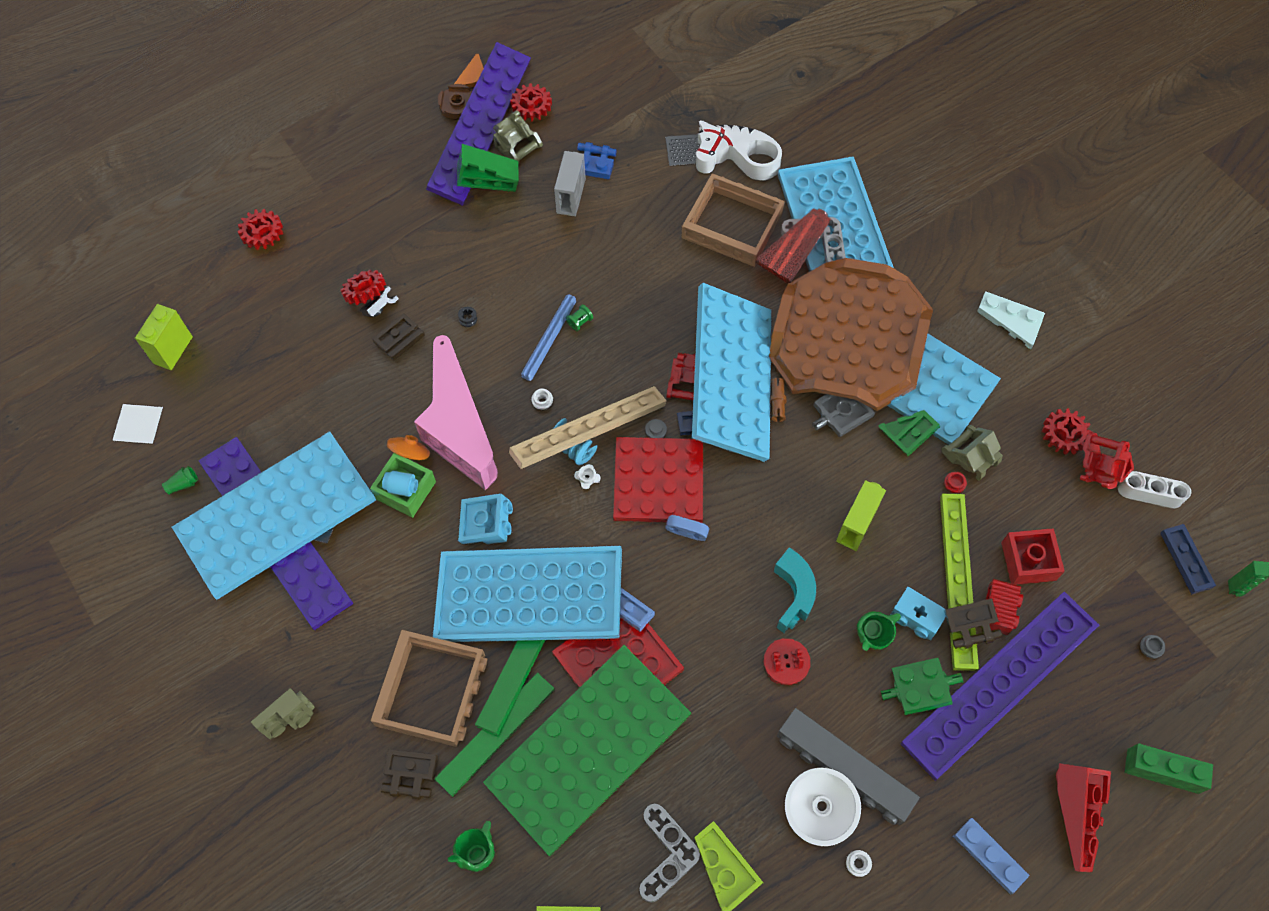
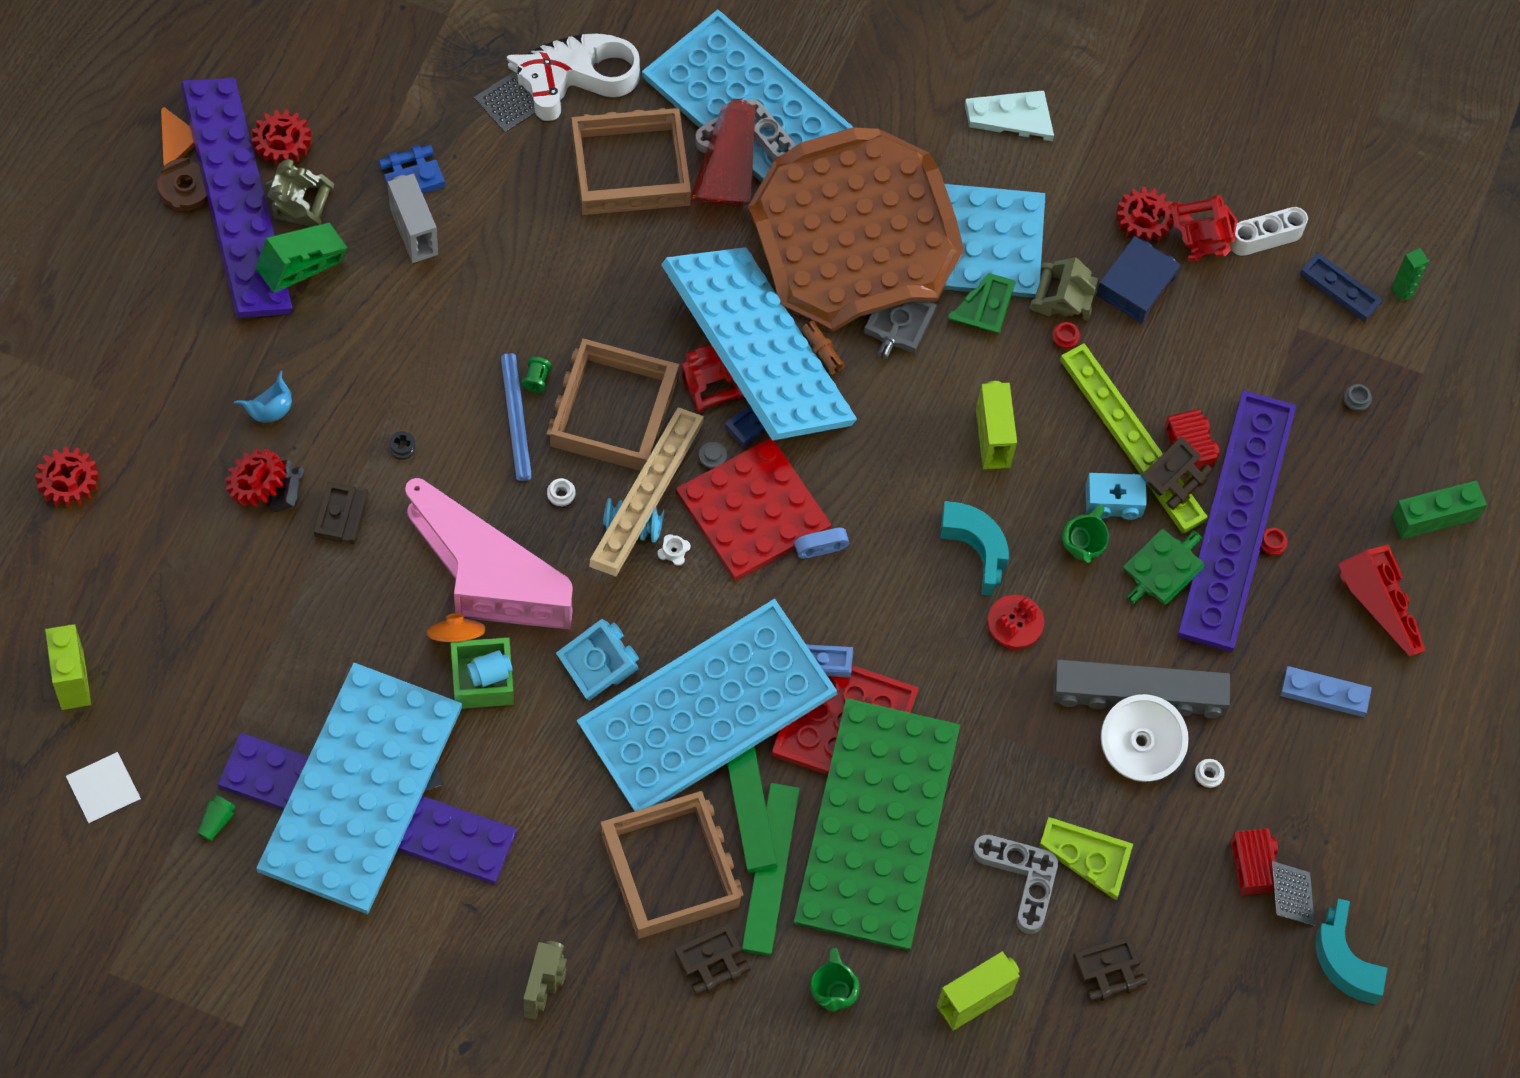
camera: 40 degrees left, 0 degrees up
(406, 250) = (271, 404): none -> dark azure hair
(599, 334) = (623, 360): none -> medium nougat window
(1019, 716) = (1273, 541): none -> red plate
(1032, 556) = (1191, 371): red brick -> none
(1033, 471) = (1137, 279): none -> dark blue panel

